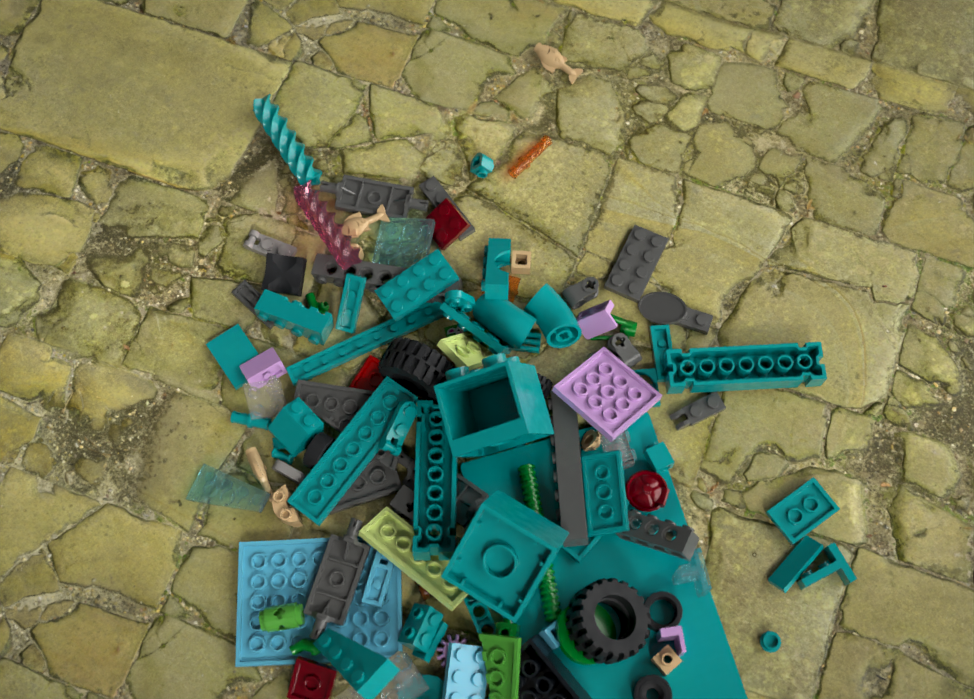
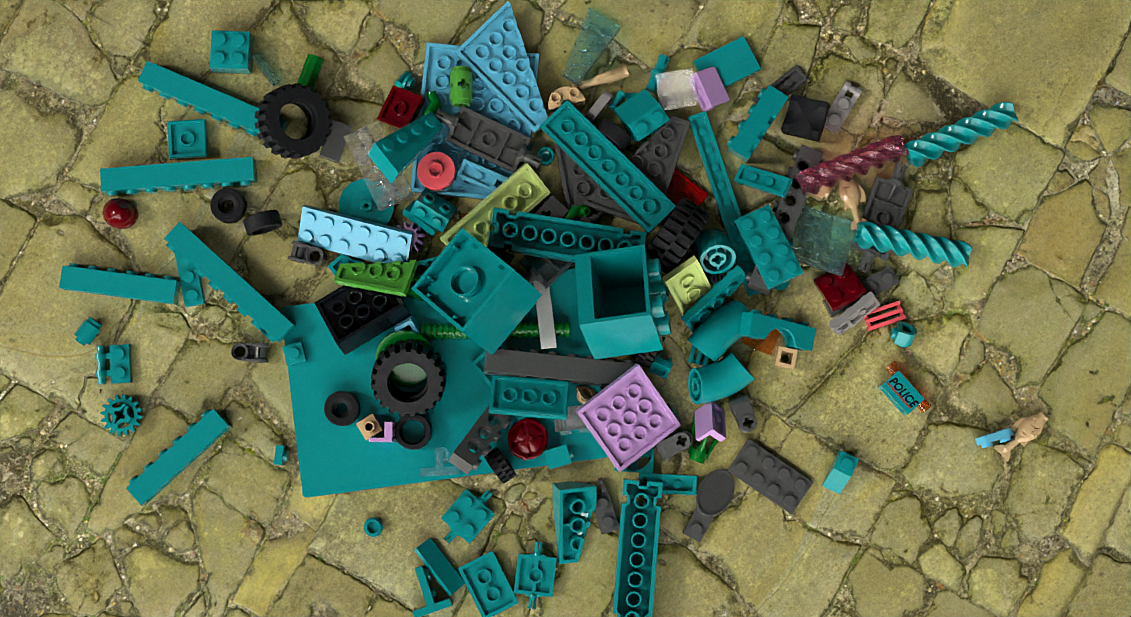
camera: 95 degrees right, 15 degrees up
(252, 578) = (501, 62): none -> medium azure wing
(279, 683) = (405, 81): none -> teal plate
(311, 300) = (769, 146): green arm -> none
(344, 518) = (547, 154): none -> teal tile
(378, 629) = (437, 172): none -> coral piece
(394, 168) = (918, 244): none -> teal piece
(398, 427) = (621, 211): teal plate -> none
(403, 475) = (578, 212): none -> green arm
(429, 328) = (714, 251): none -> teal brick
(460, 173) = (899, 310): none -> coral tile
(460, 300) = (743, 284): teal plate -> none
(470, 209) = (854, 314): none -> light grey hinge
(528, 487) = (545, 318): none -> white sticker
(538, 160) = (901, 393): none -> teal panel
(550, 371) = (661, 366): none -> teal tile
(561, 78) = (1001, 435): none -> medium azure plate
(619, 201) = (840, 472): none -> teal slope
(681, 510) = (500, 465): none -> black tyre
(708, 439) = (572, 514): none -> teal wedge
(737, 543) = (468, 516): none -> teal plate
(781, 465) = (535, 575): none -> teal plate

